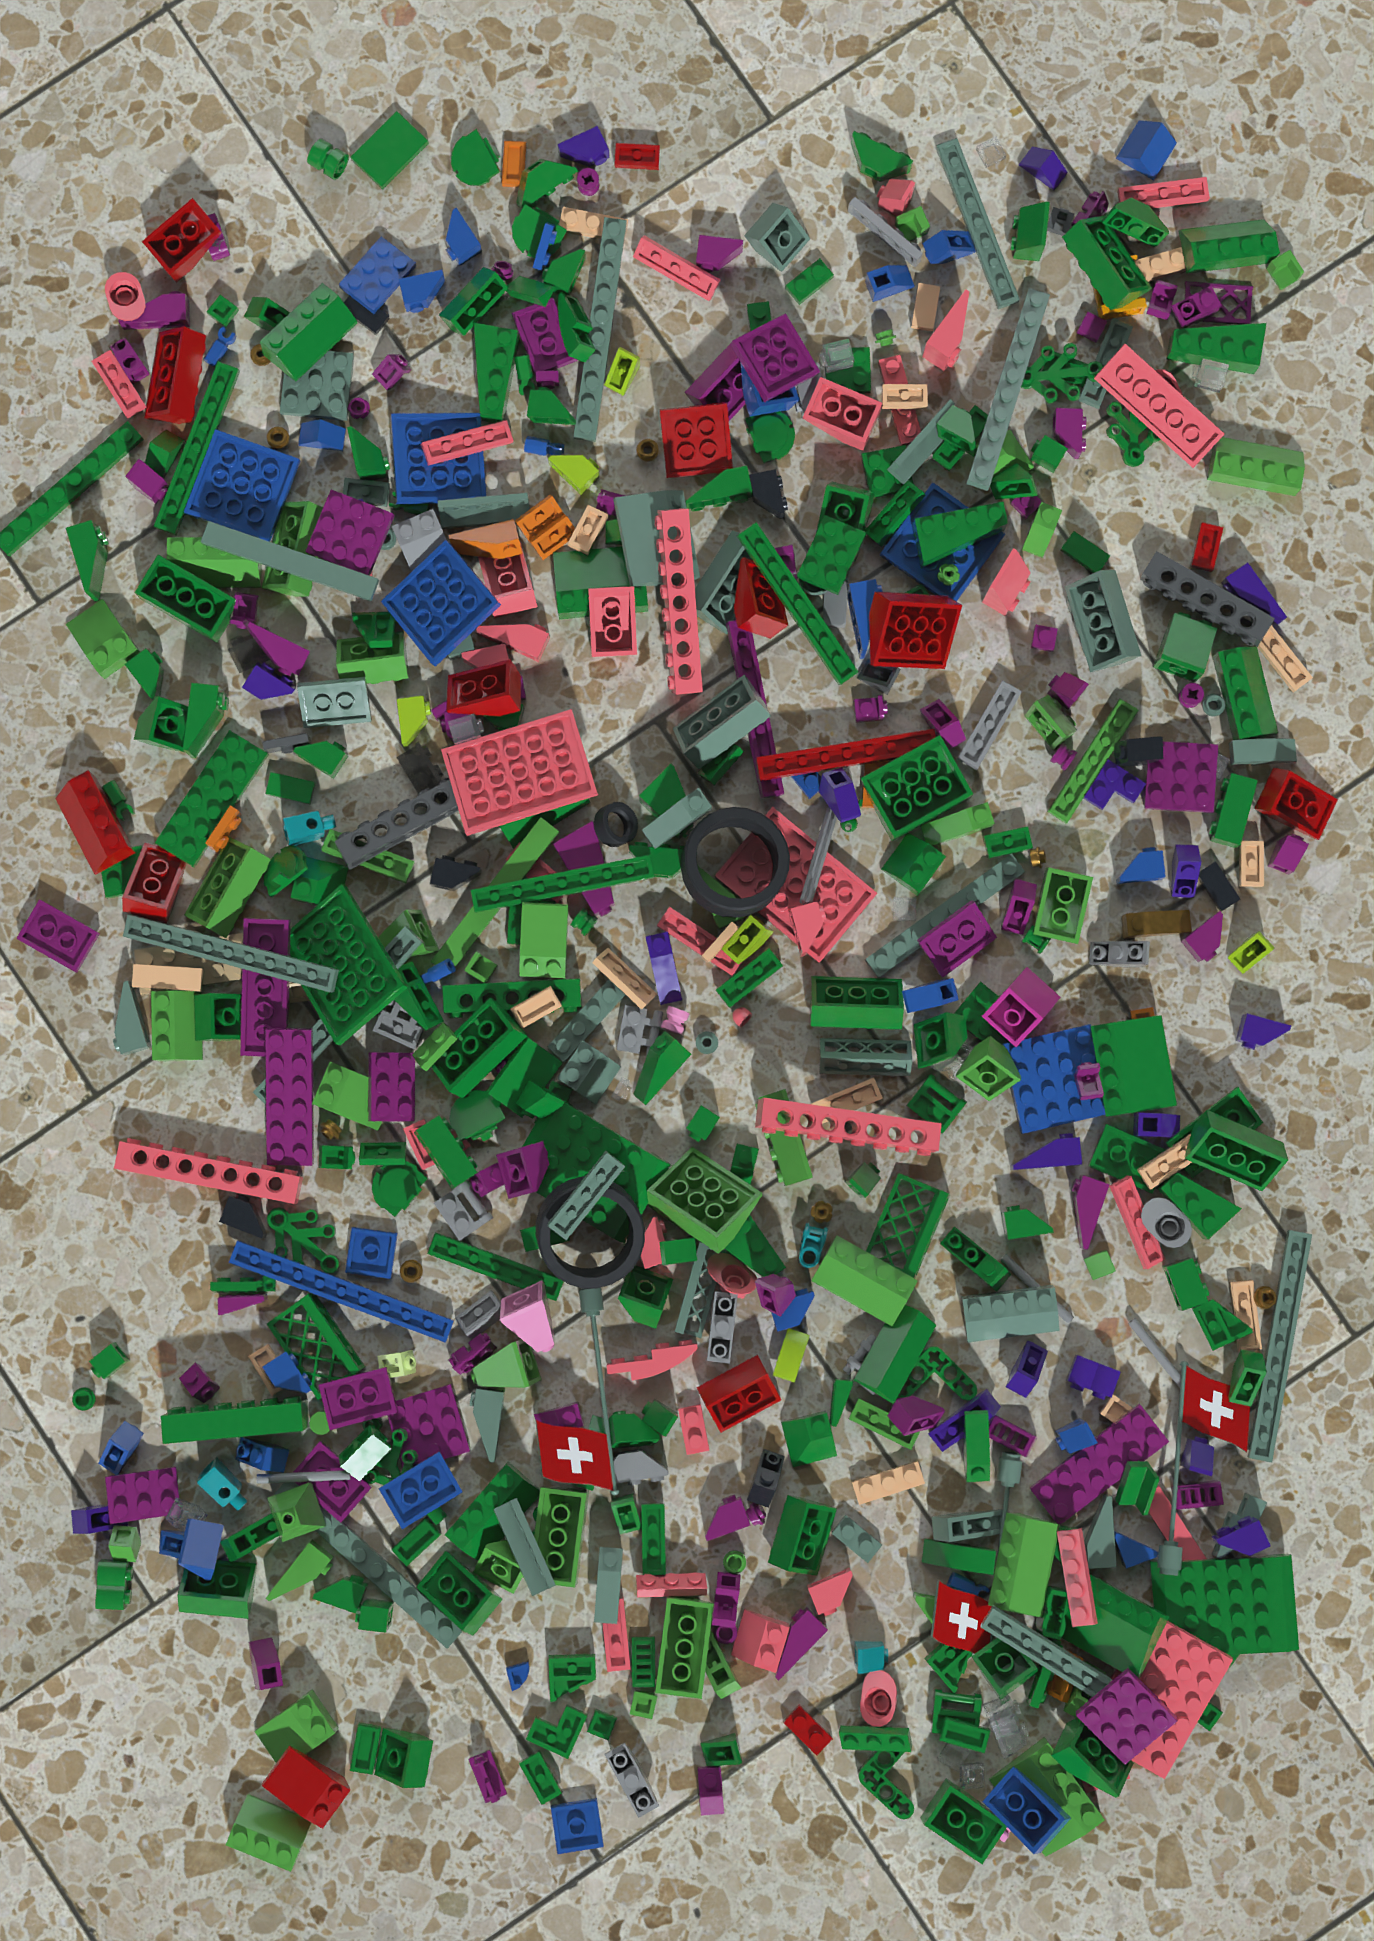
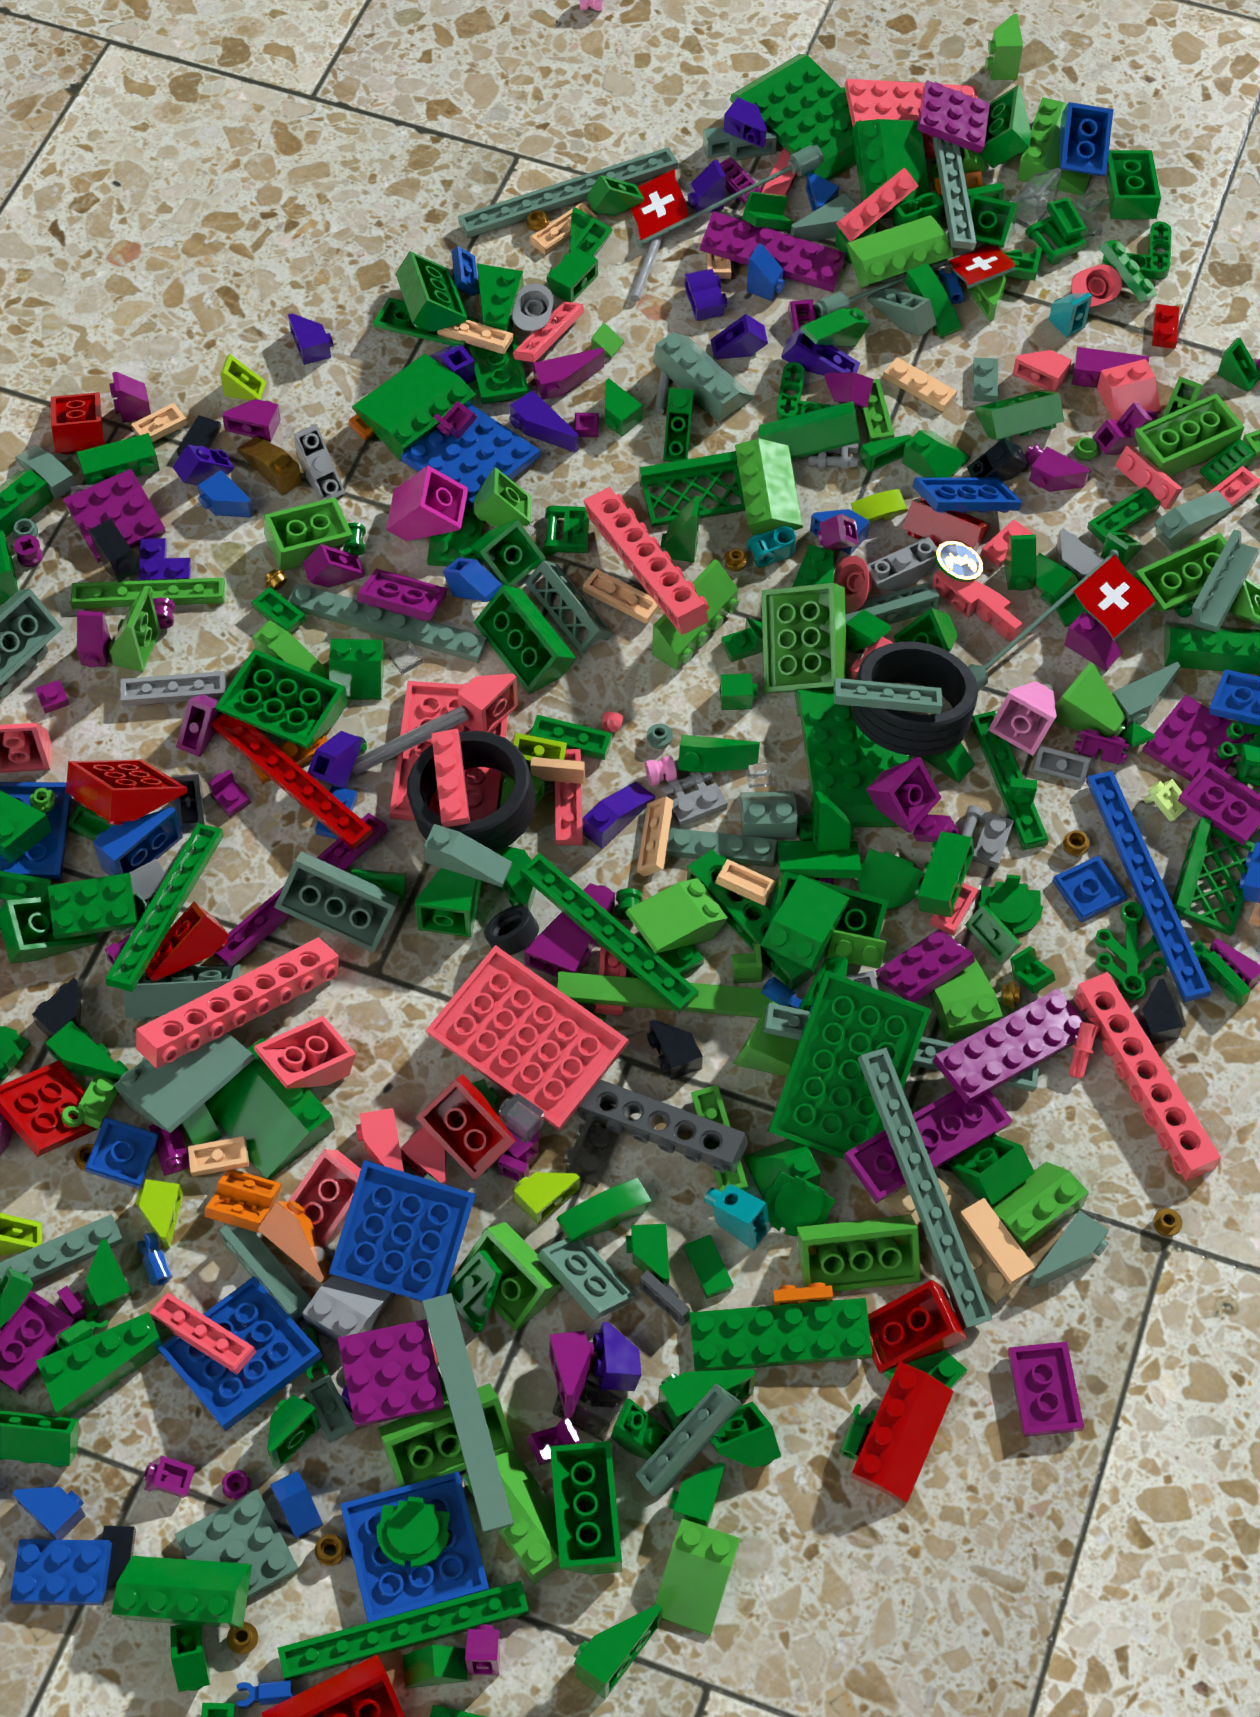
camera: 125 degrees left, 25 degrees down
(111, 1103) = (1165, 1229): none -> pearl gold plate
(175, 682) = (687, 1440): none -> sand green fence
(207, 664) = (638, 1431): none -> green slope
(248, 488) = (413, 1532): none -> green piece
(256, 1144) = (1082, 1049): none -> coral axle
(371, 745) = (604, 1210): none -> green slope
(460, 1385) = (1137, 735): none -> green slope
(467, 1015) = (805, 923): none -> green slope
(472, 1259) = (1021, 790): none -> green plate
(632, 469) = (122, 1153): none -> blue tile
(680, 472) = (93, 1105): none -> bright green hinge
(692, 1368) = (959, 561): none -> shield
(746, 846) = (450, 778): none -> coral plate
(747, 1424) = (967, 494): none -> blue plate
(1029, 1191) = (587, 424): none -> magenta tile
(1180, 1833) = (1005, 50): none -> bright green slope
(1250, 1201) = (465, 271): none -> blue plate

